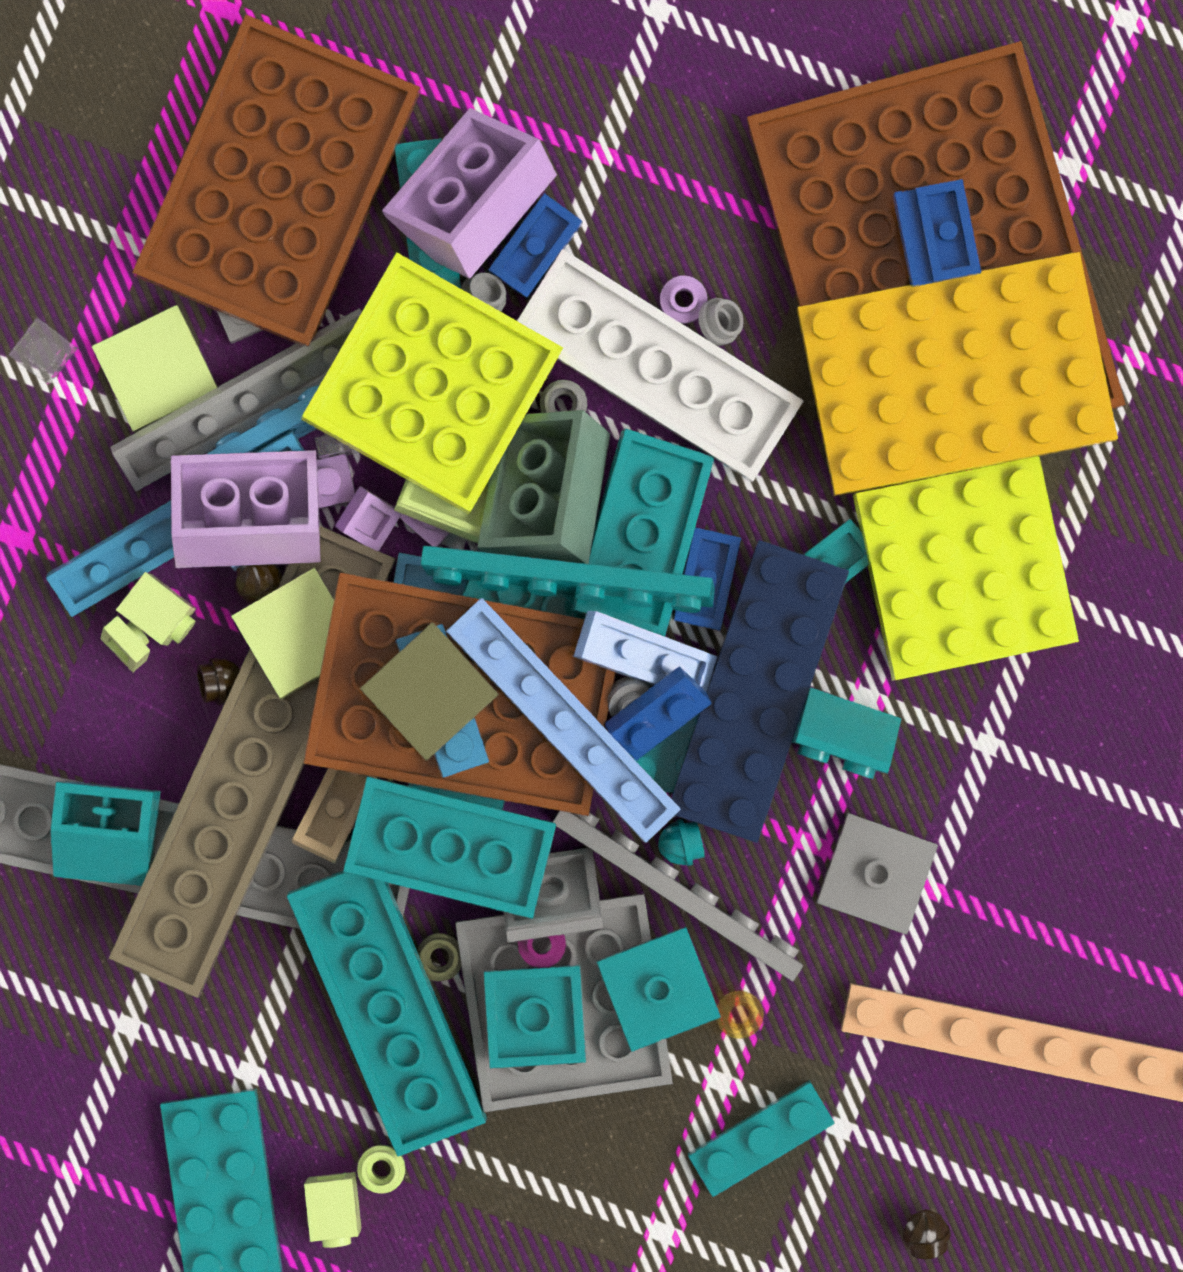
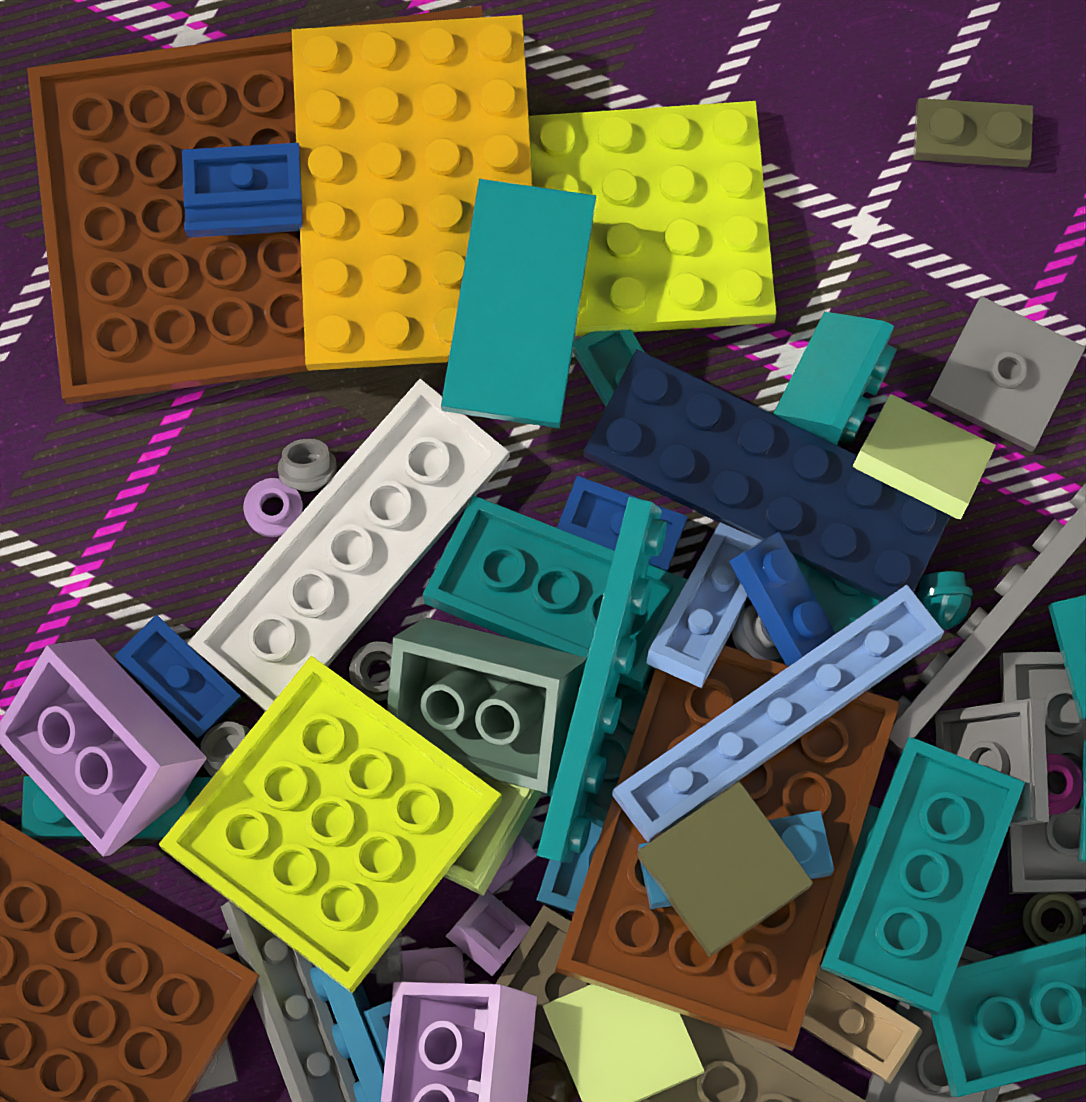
camera: 80 degrees left, 10 degrees down
(794, 813) = (924, 456): none -> yellowish green tile
(868, 470) = (519, 303): none -> teal tile
(1078, 824) = (973, 132): none -> olive plate

